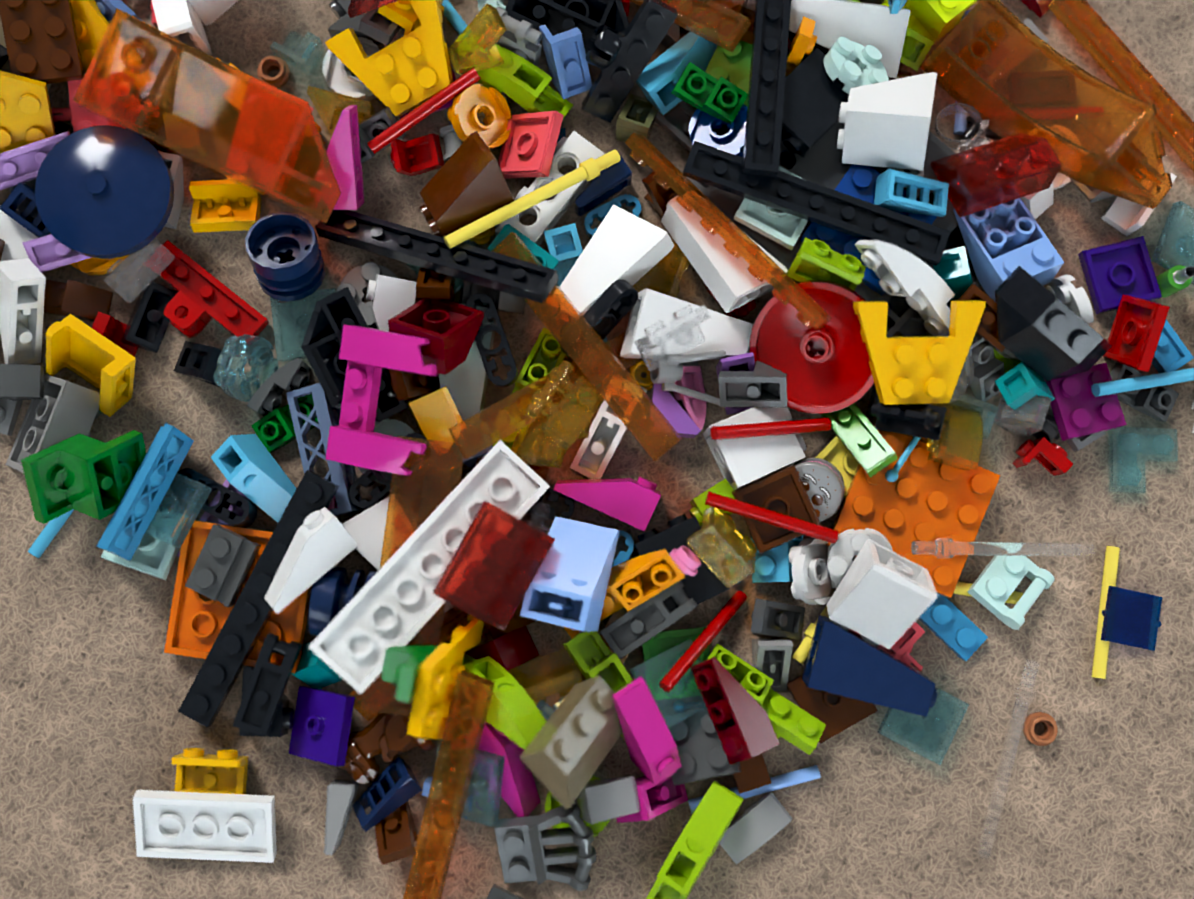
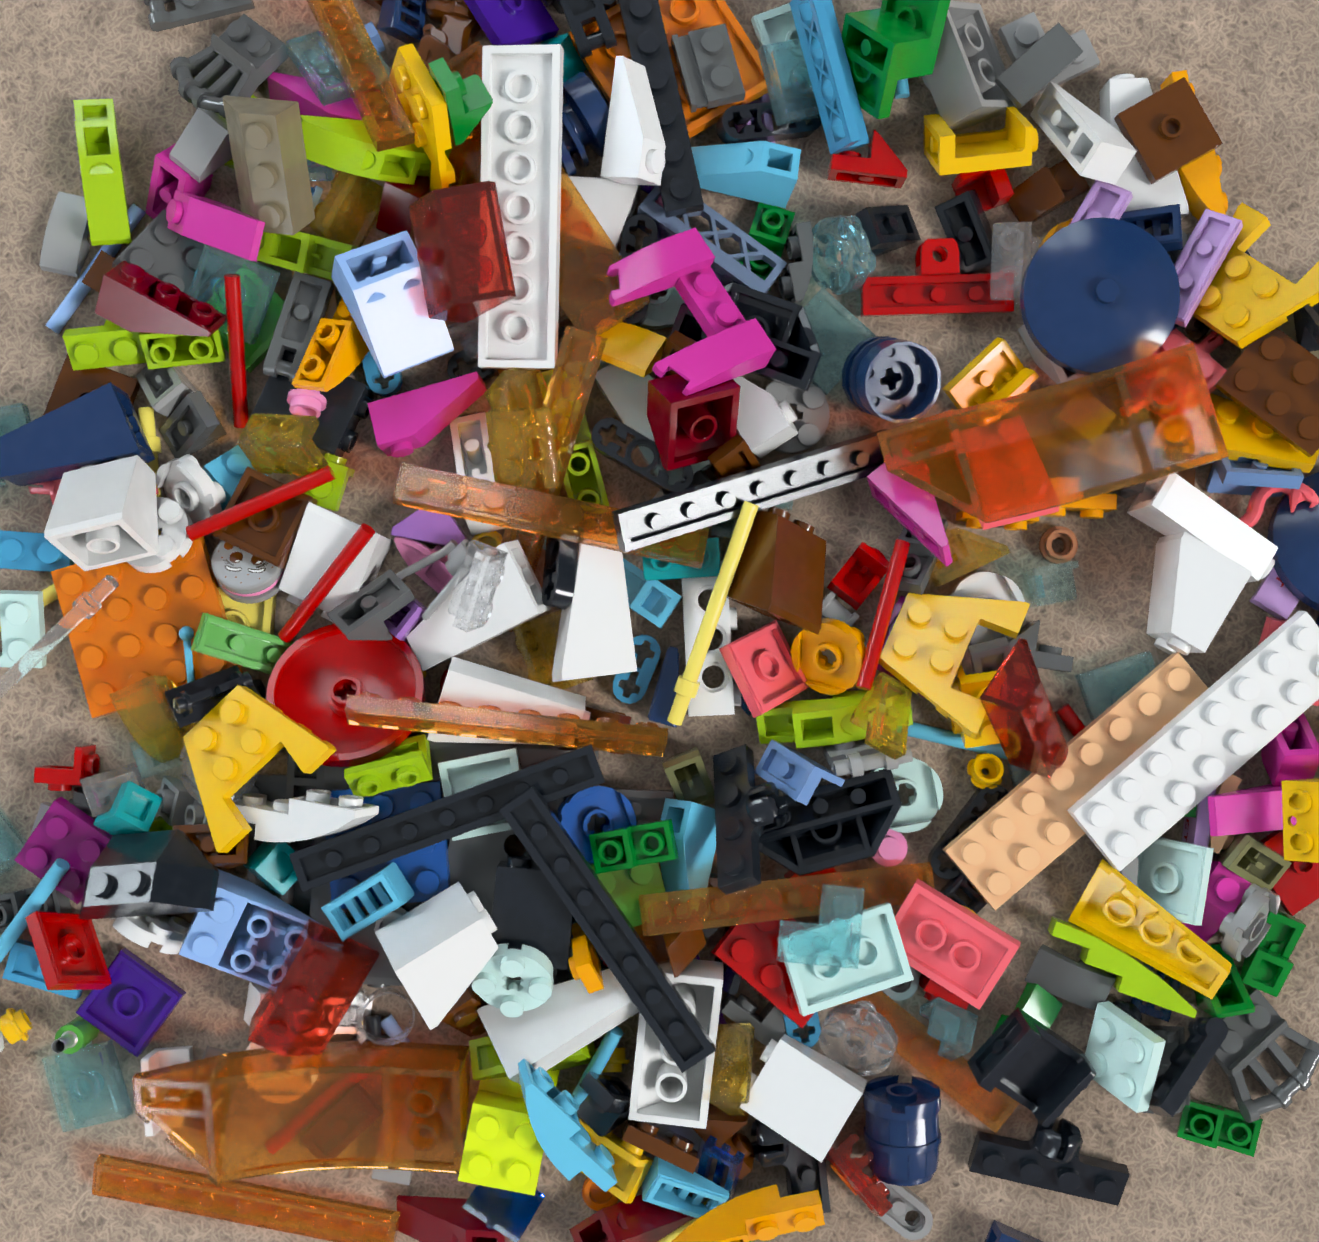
camera: 145 degrees right, 5 degrees up
(168, 409) = (878, 169): none -> red slope

